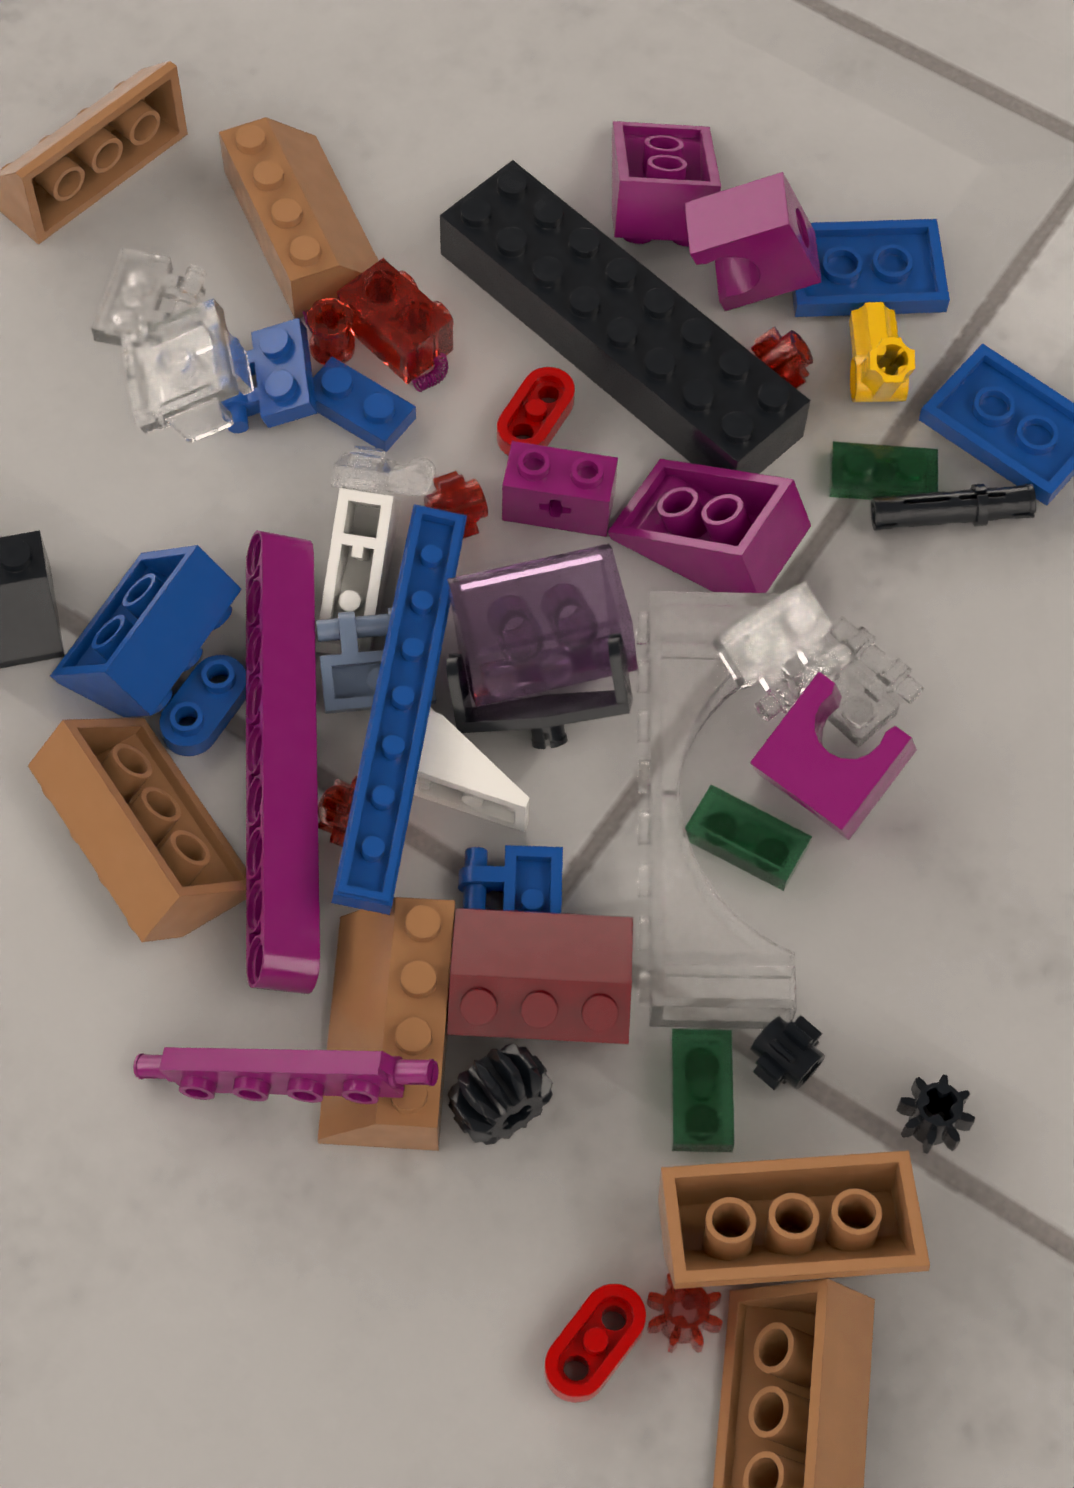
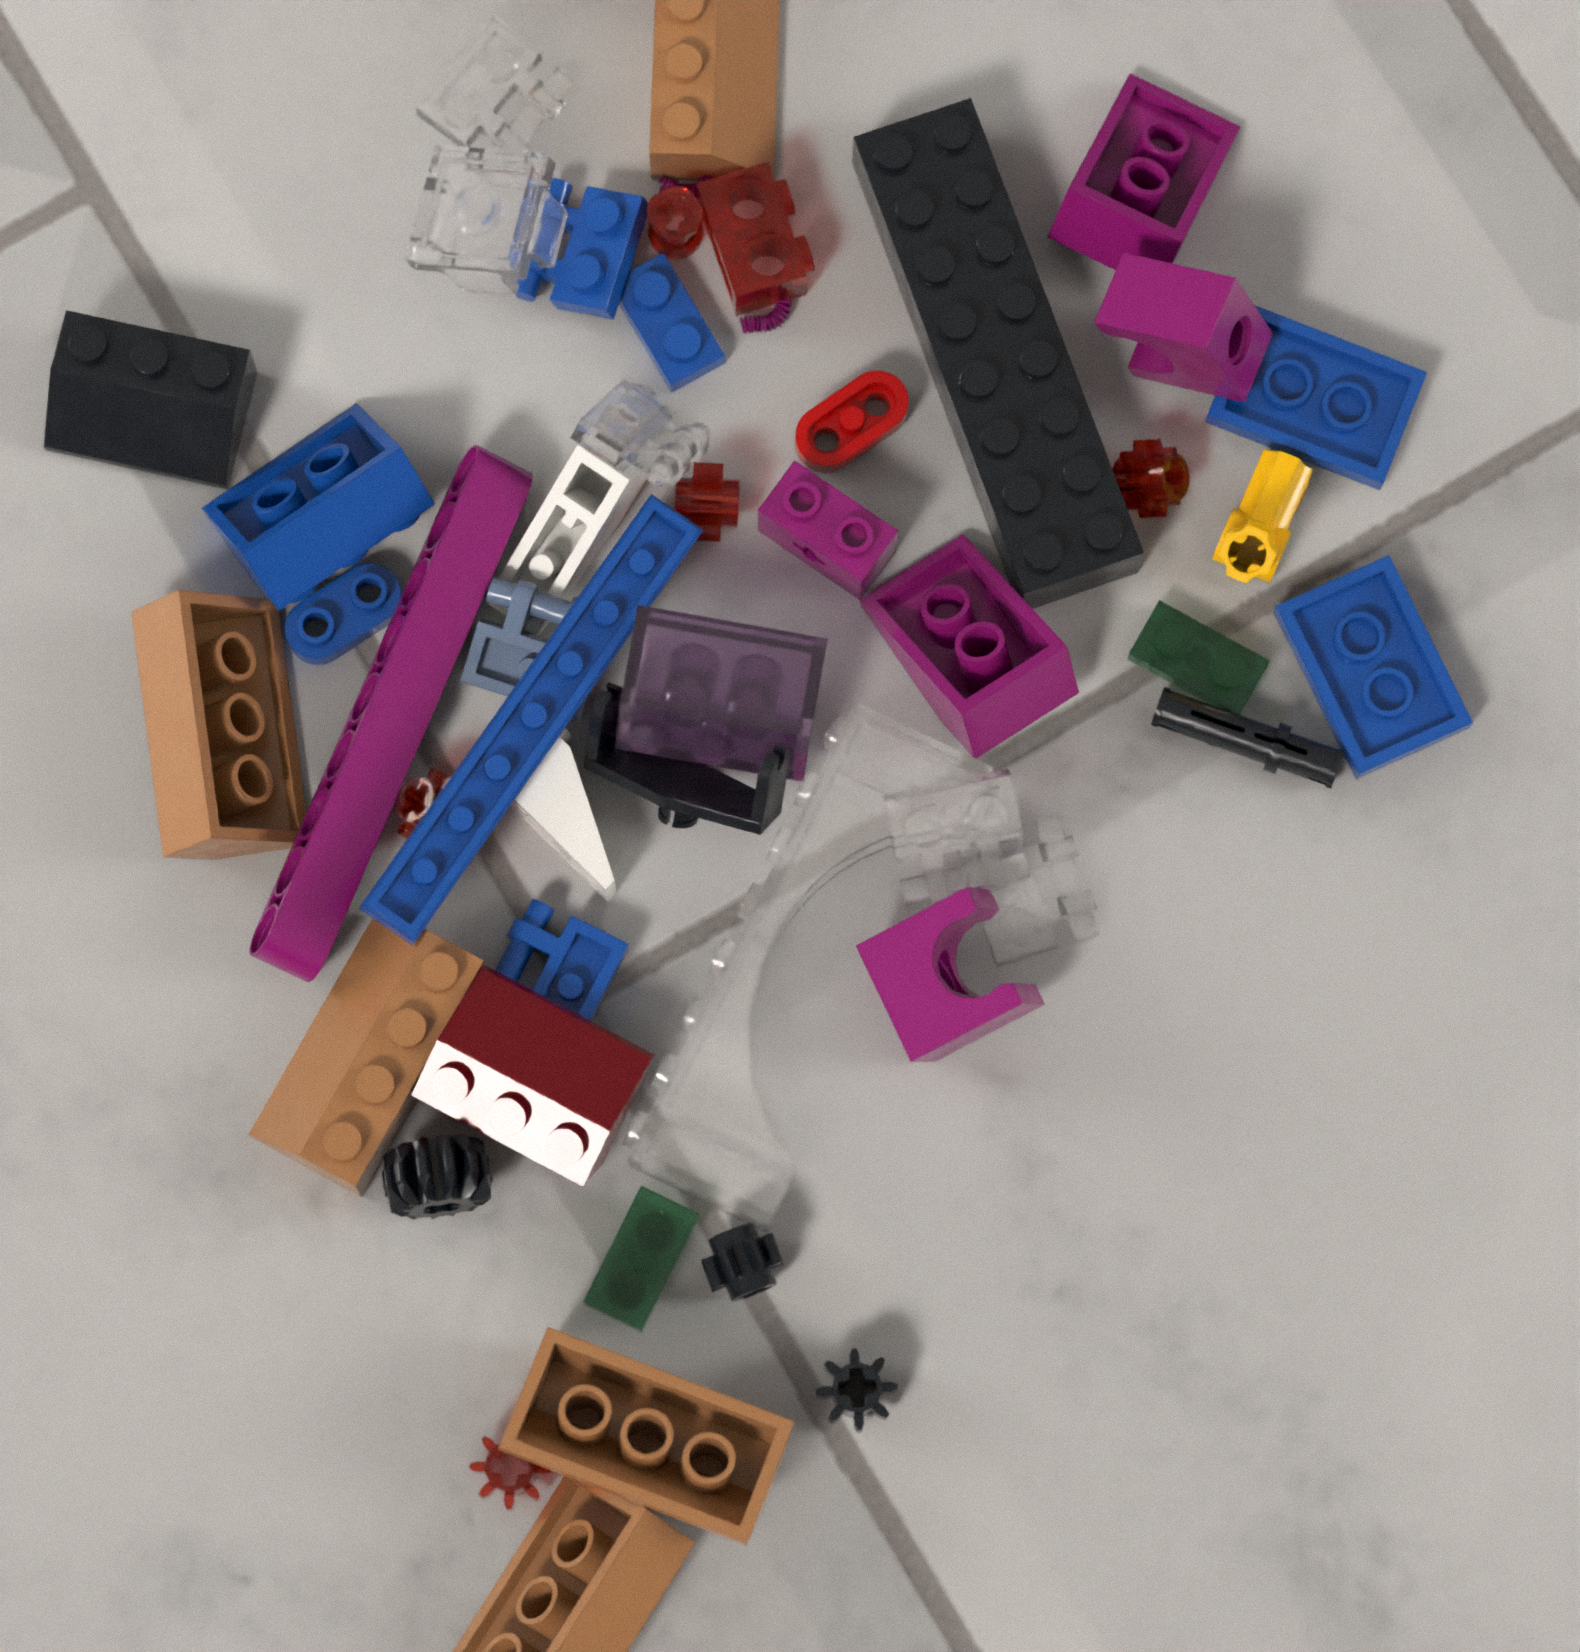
camera: 25 degrees right, 15 degrees up
(290, 1072) = (250, 1077): magenta plate -> none
(593, 1344) = (413, 1453): red plate -> none
(747, 837) = (824, 1016): clear green plate -> none

